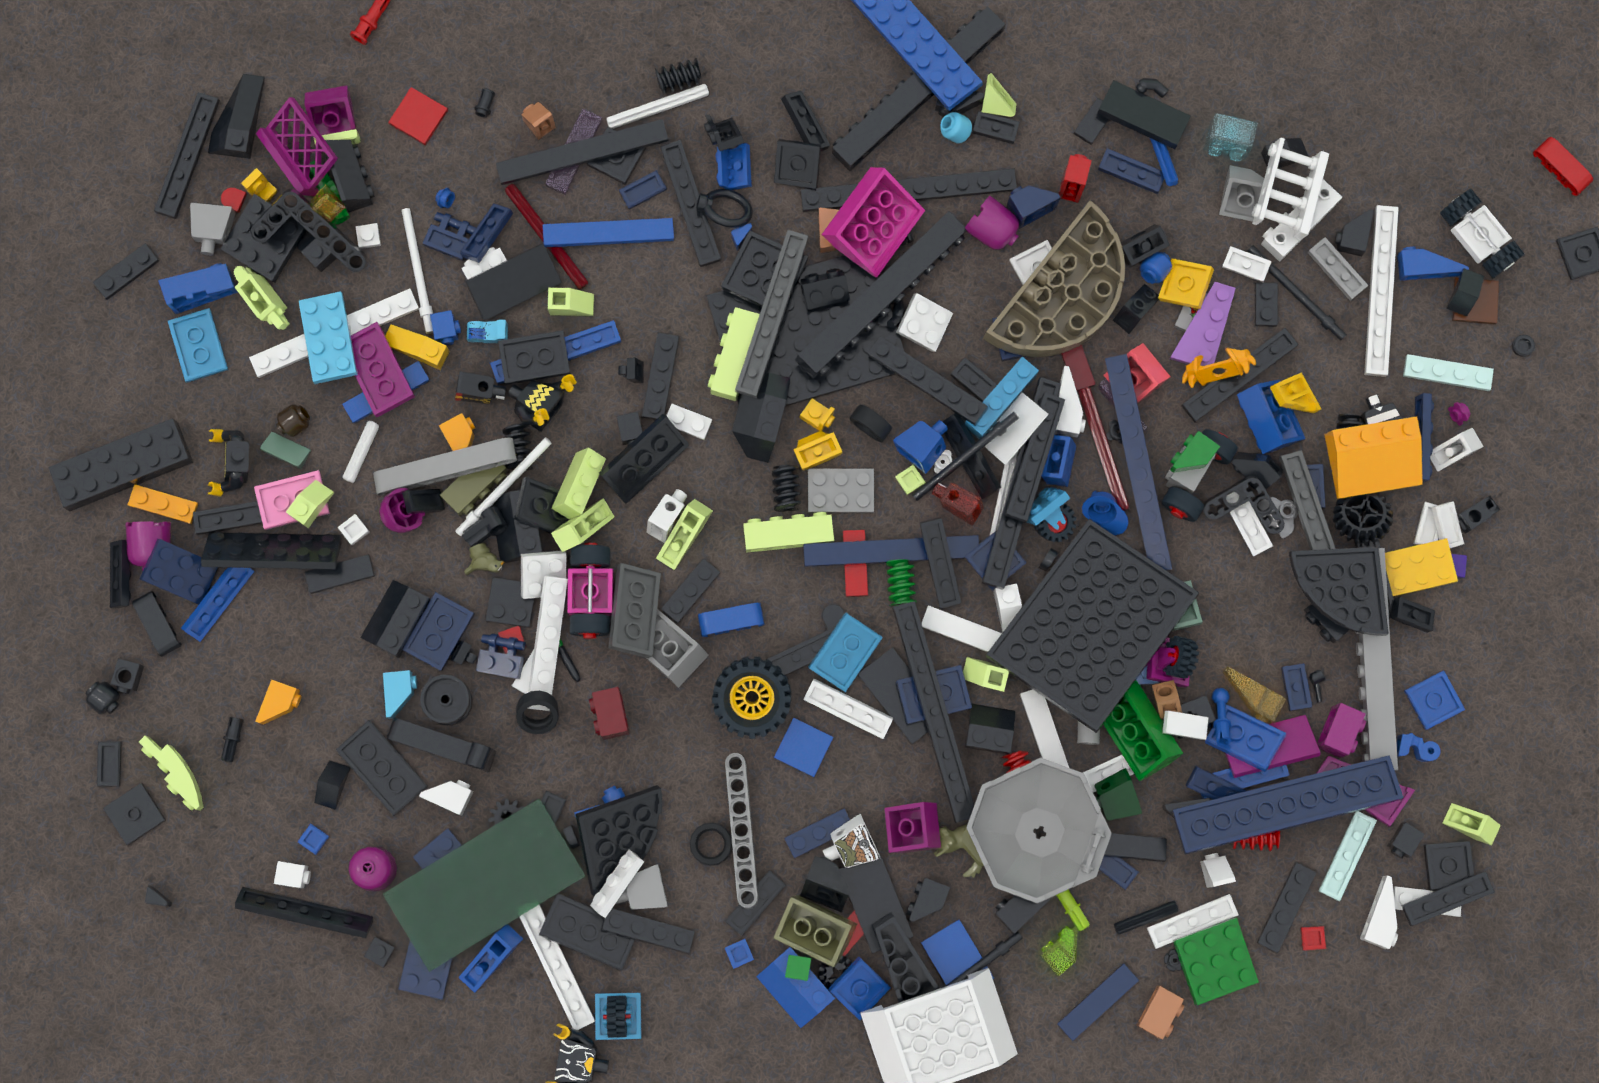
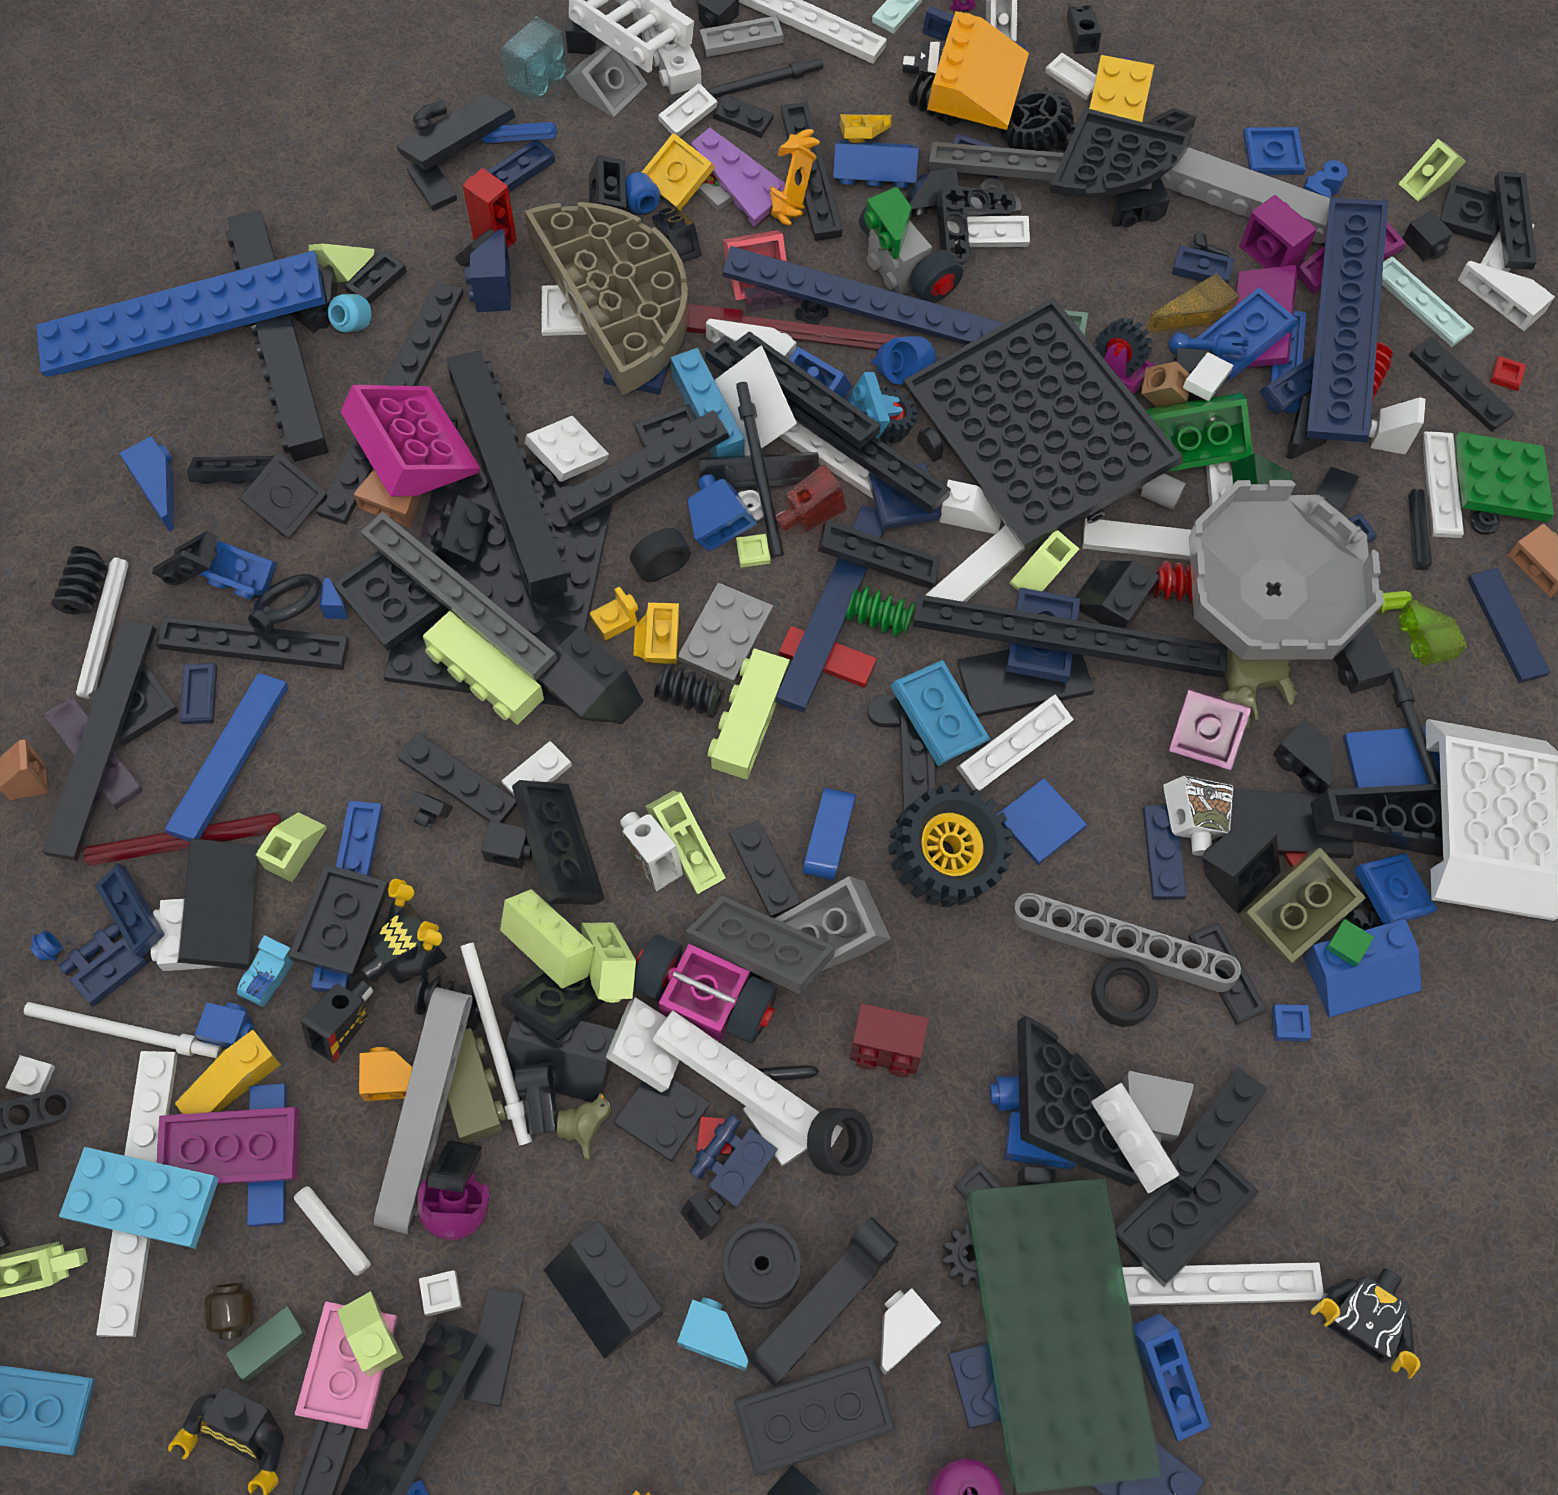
camera: 65 degrees left, 15 degrees down
(438, 631) = (654, 1235): dark blue plate -> none
(617, 1016) = (1322, 1227): plate -> none
(773, 75) = (154, 476): none -> blue slope
(994, 226) = (492, 321): magenta cylinder -> none
(1048, 181) = (464, 256): none -> black tile
(1448, 524) = (1079, 55): white tile -> none

